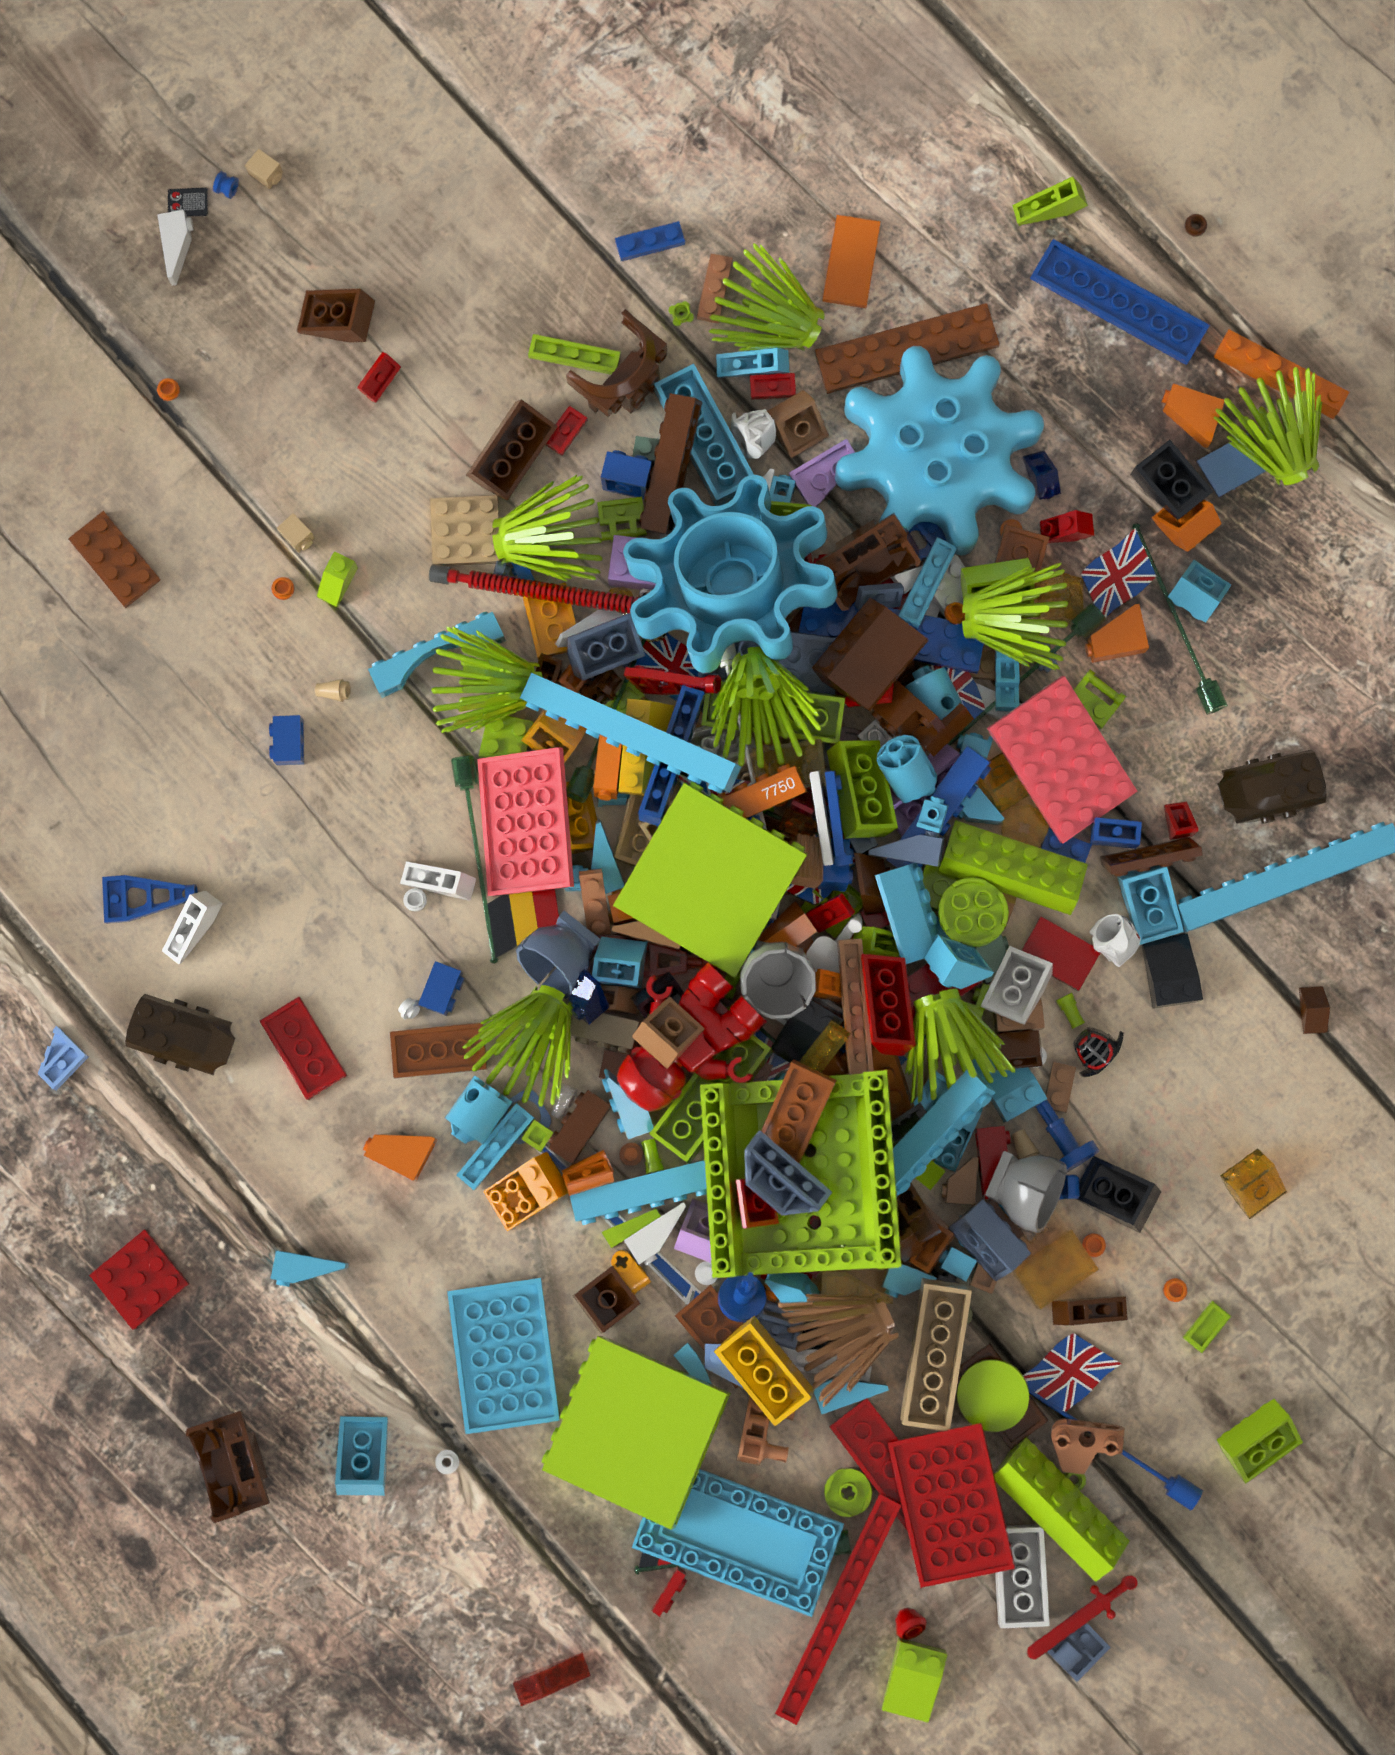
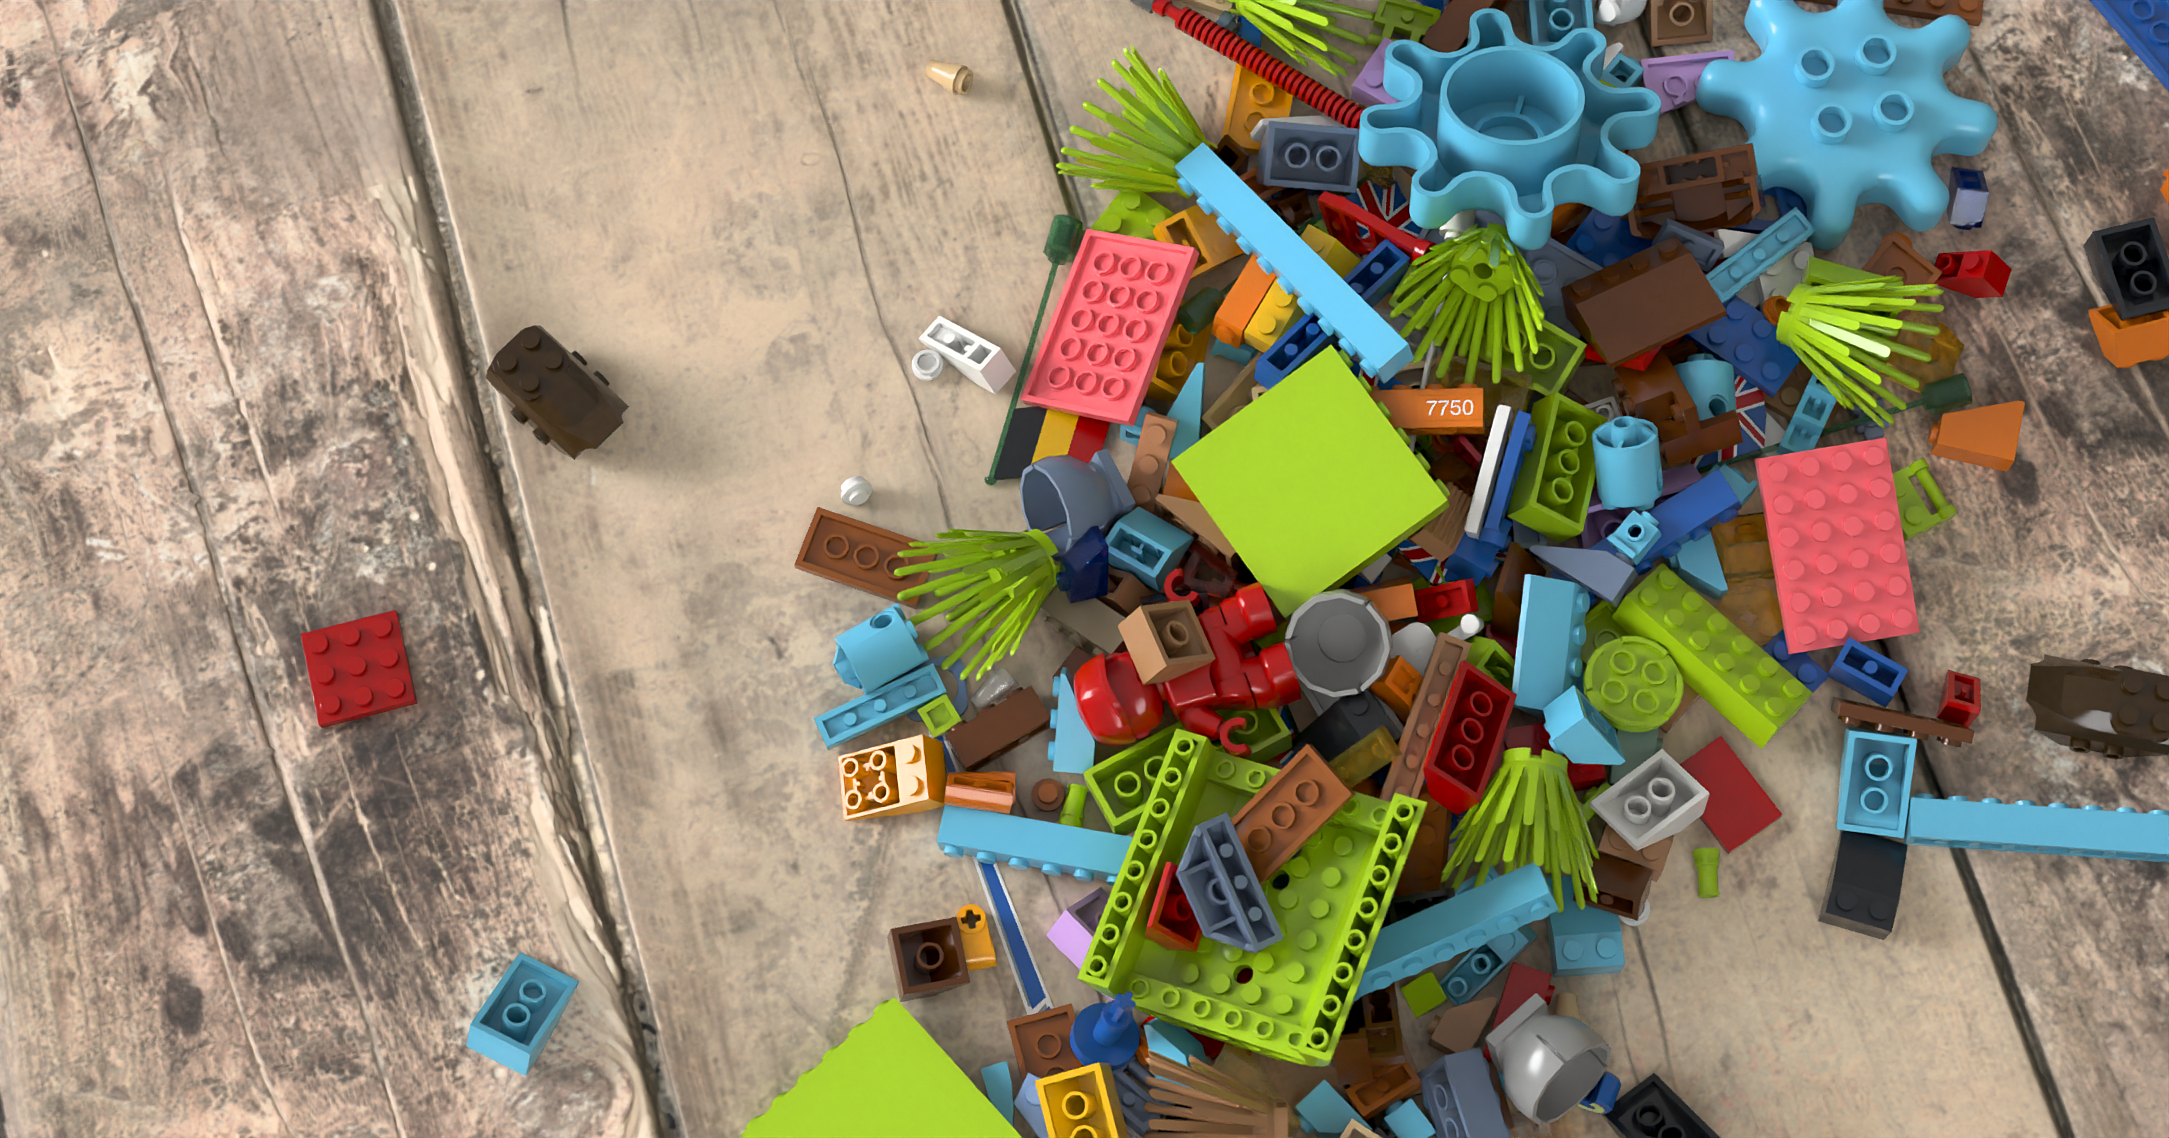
camera: 25 degrees right, 10 degrees down
(61, 1059) = (399, 363): light blue wing -> none
(116, 897) = (565, 201): blue plate -> none
(191, 925) = (639, 273): white slope -> none
(230, 1465) = (352, 938): reddish brown piece -> none
(287, 740) = (864, 109): blue brick -> none
(296, 1268) = (565, 745): medium azure slope -> none
(303, 1048) = (701, 482): red tile -> none
(393, 673) = (1034, 86): medium azure arch -> none
(400, 1153) = (758, 660): orange slope -> none
(441, 989) = (907, 484): blue brick -> none
(454, 1461) = (625, 1082): white plate -> none
(503, 1356) = (763, 971): medium azure plate -> none
(624, 1230) = (992, 886): lime piece -> none
(652, 1237) = (1024, 909): white slope -> none
(704, 1273) = (1072, 990): white plate -> none
(1060, 1086) = (1647, 964): medium nougat plate -> none
(1073, 1153) = (1628, 1054): blue piece -> none
(1096, 1050) = (1718, 932): black piece -> none
(1115, 939) = (1808, 805): white piece -> none
(1122, 576) = (2019, 364): flag -> none
(1199, 591) = (2111, 423): medium azure slope -> none
(1314, 1010) = (2037, 1019): reddish brown slope -> none

